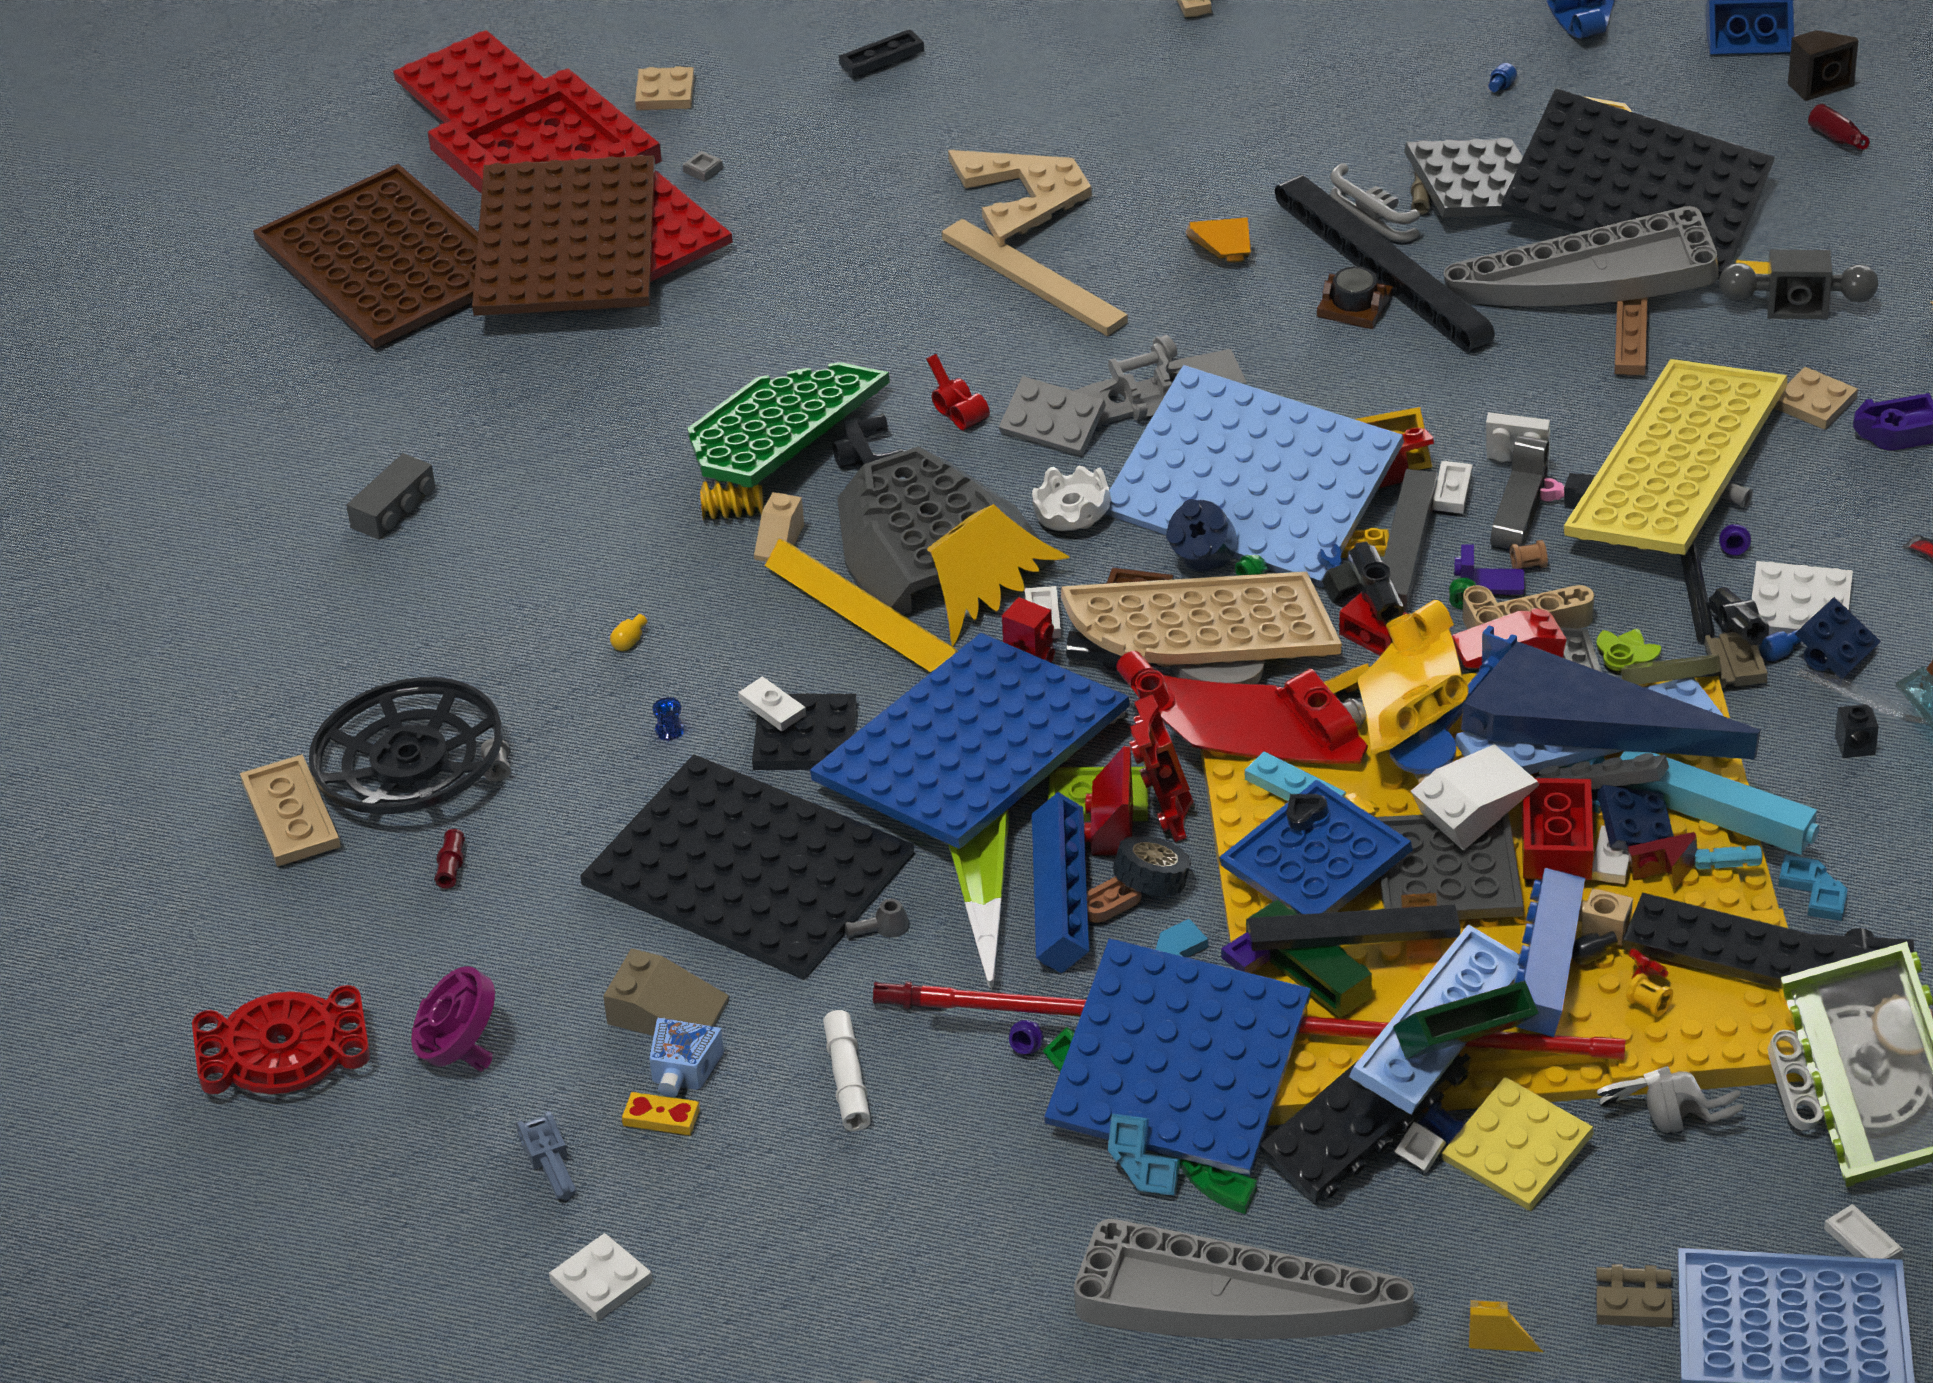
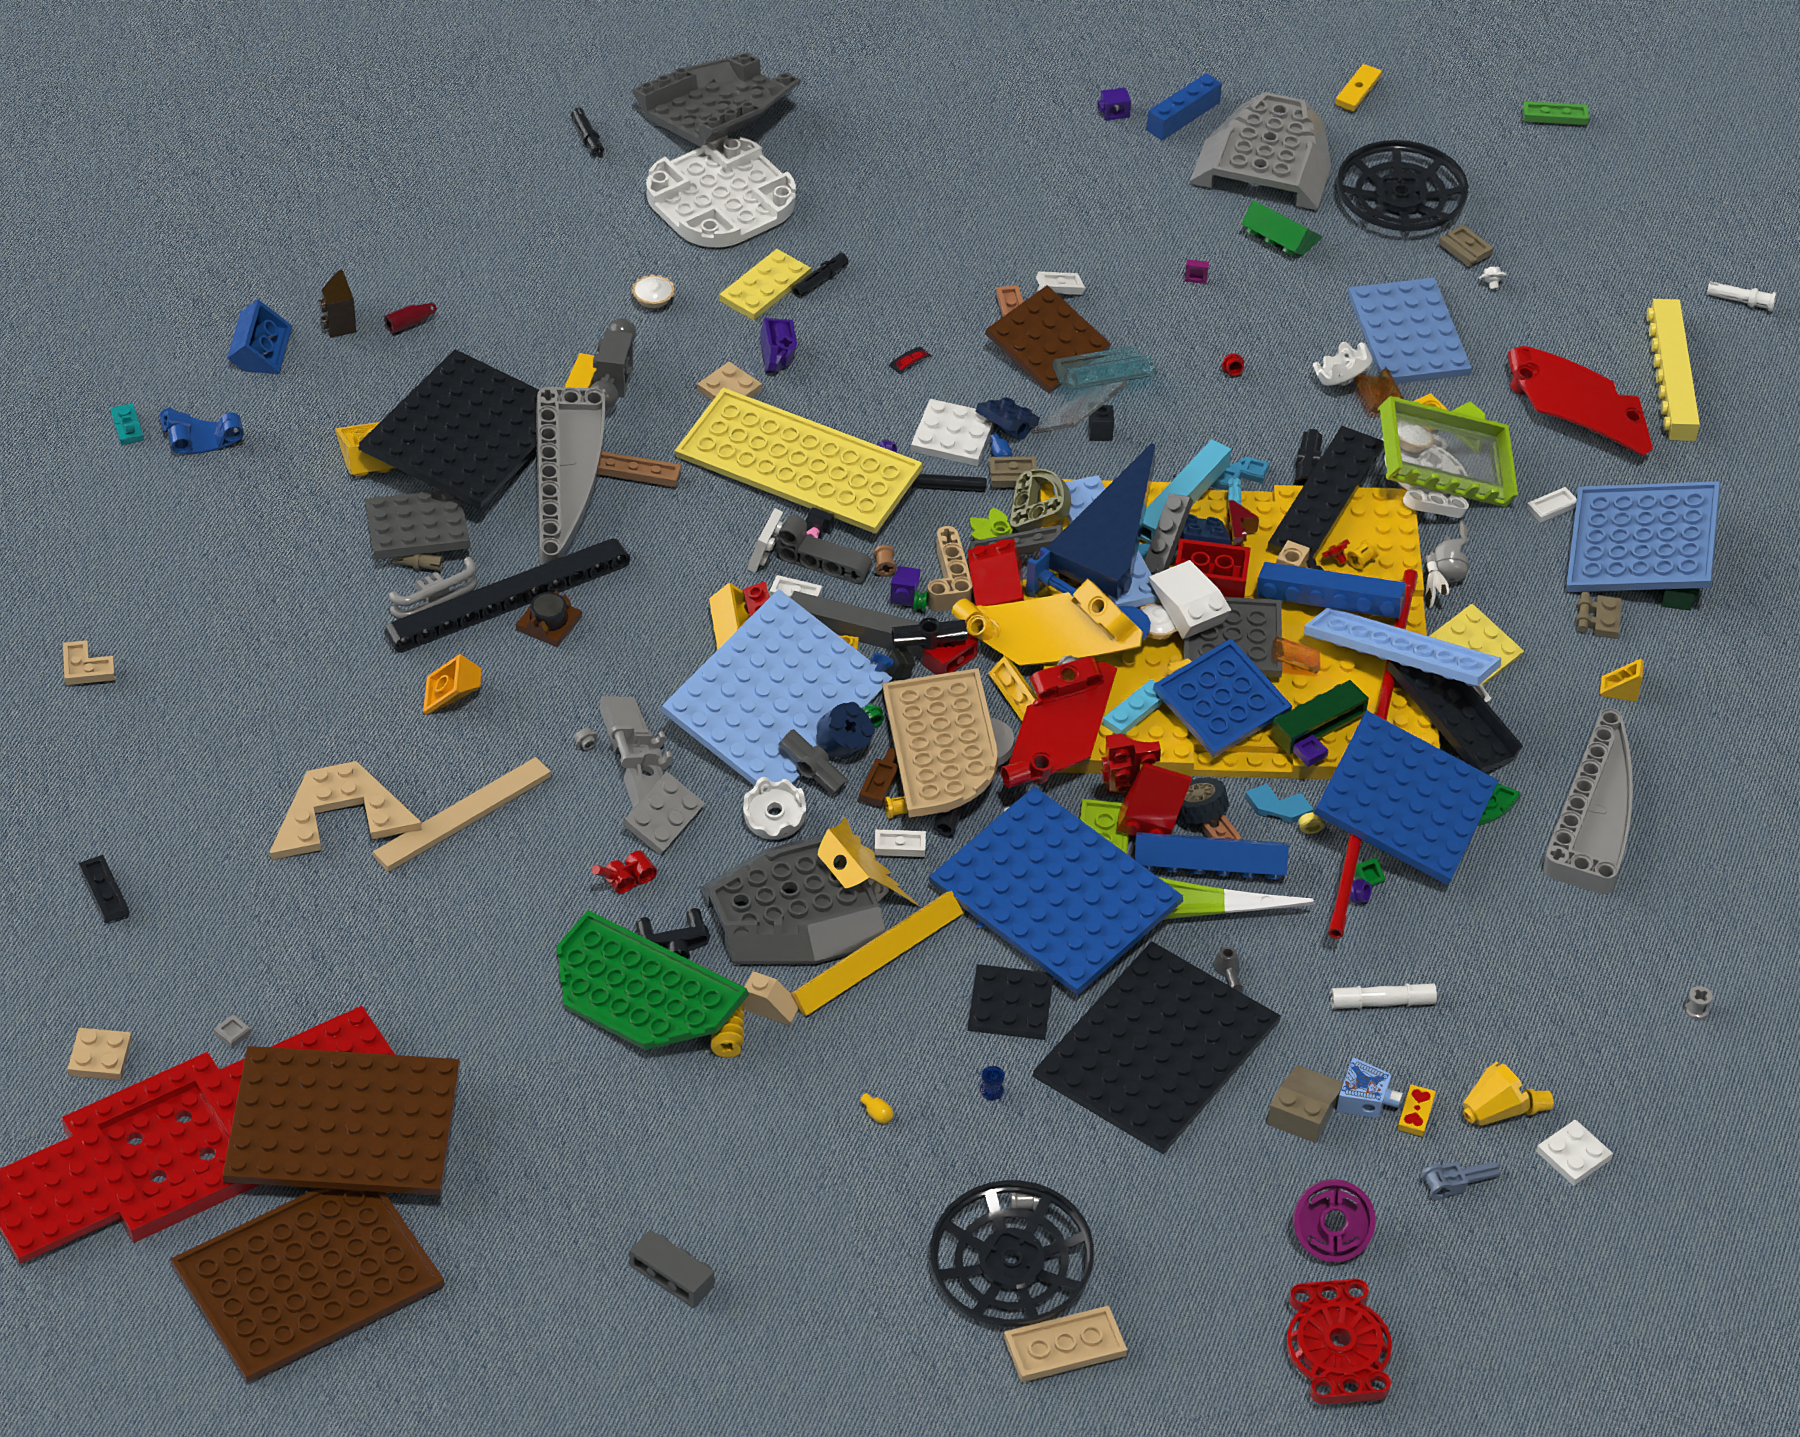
camera: 90 degrees left, 5 degrees up
(449, 858) = (1135, 1233): dark red pin -> none
(676, 1181) = (1495, 1097): none -> yellow cone
(678, 1229) = (1539, 1101): none -> yellow piece
(772, 703) = (993, 1010): white plate -> none
(898, 994) = (1309, 955): dark red pin -> none
(1029, 628) = (942, 842): red brick -> none
(1145, 1171) = (1485, 837): dark azure tile -> none
(1147, 517) = (813, 762): none -> dark grey piece
(1305, 809) = (1188, 692): black tile -> none
(1353, 927) = (1309, 681): black tile -> none
(1465, 1019) = (1428, 622): dark green brick -> none
(1502, 77) = (276, 493): blue cylinder -> none
(1738, 616) = (983, 456): black piece -> none

